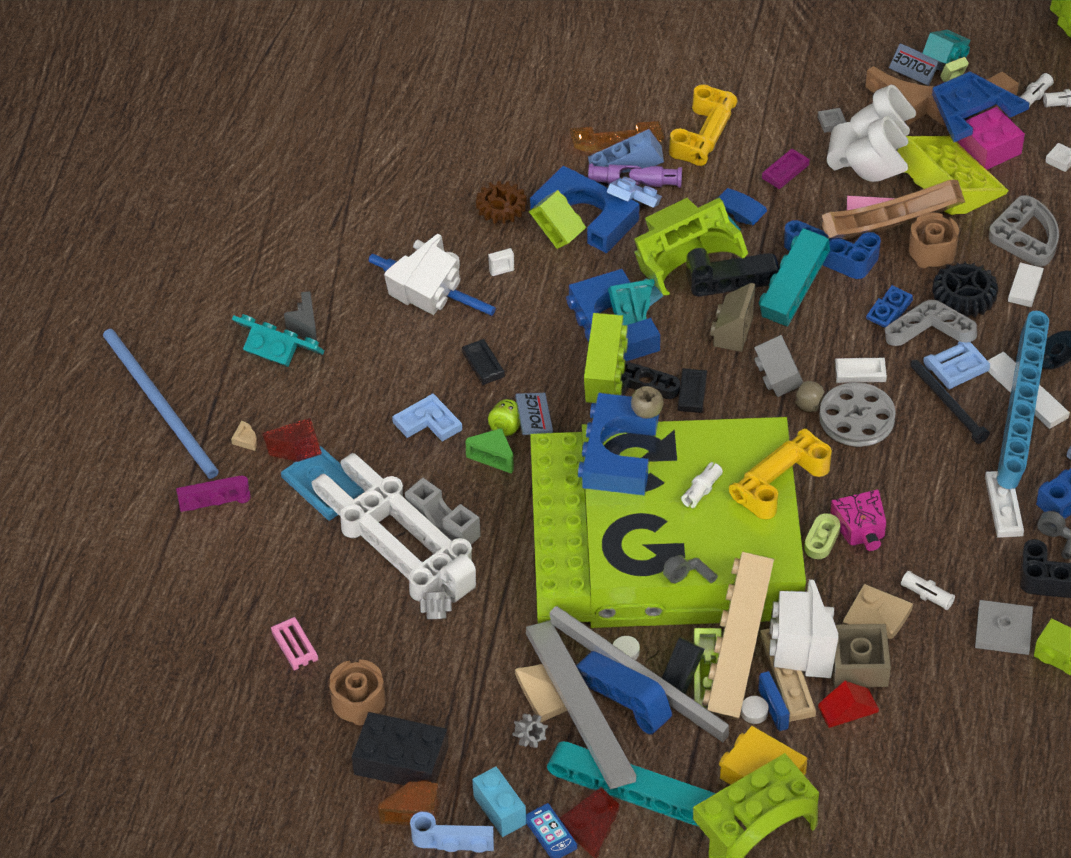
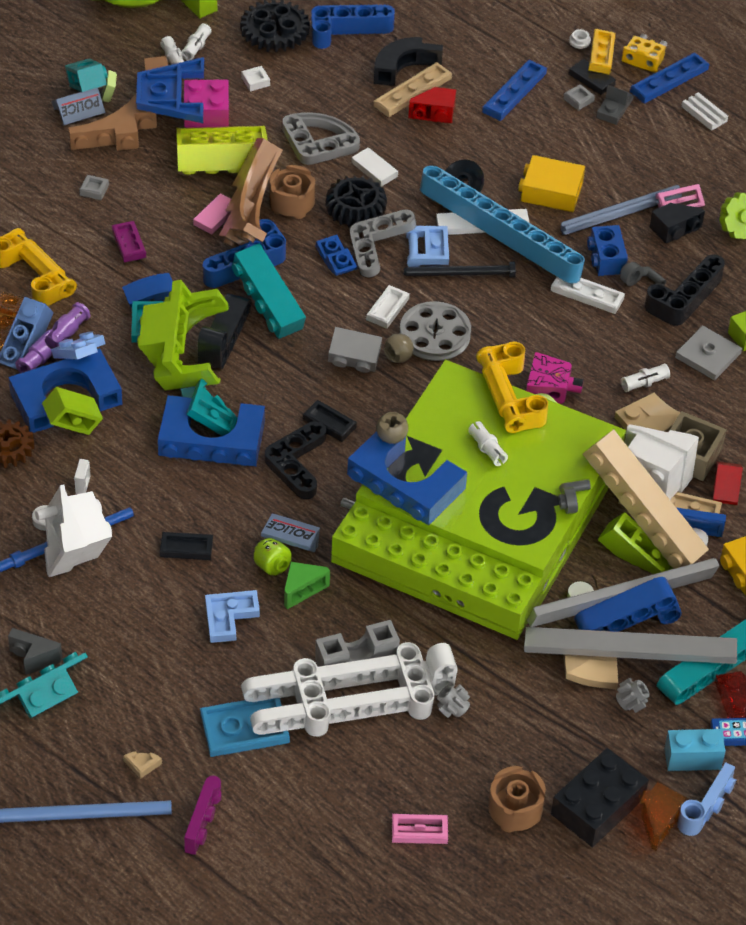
camera: 65 degrees left, 0 degrees up
(293, 441) = (189, 721): clear red slope -> none
(605, 356) = (279, 449): lime brick -> none
(683, 664) = (633, 558): black tile -> none
(734, 319) = (281, 349): dark tan slope -> none
(873, 136) = (182, 169): white piece -> none

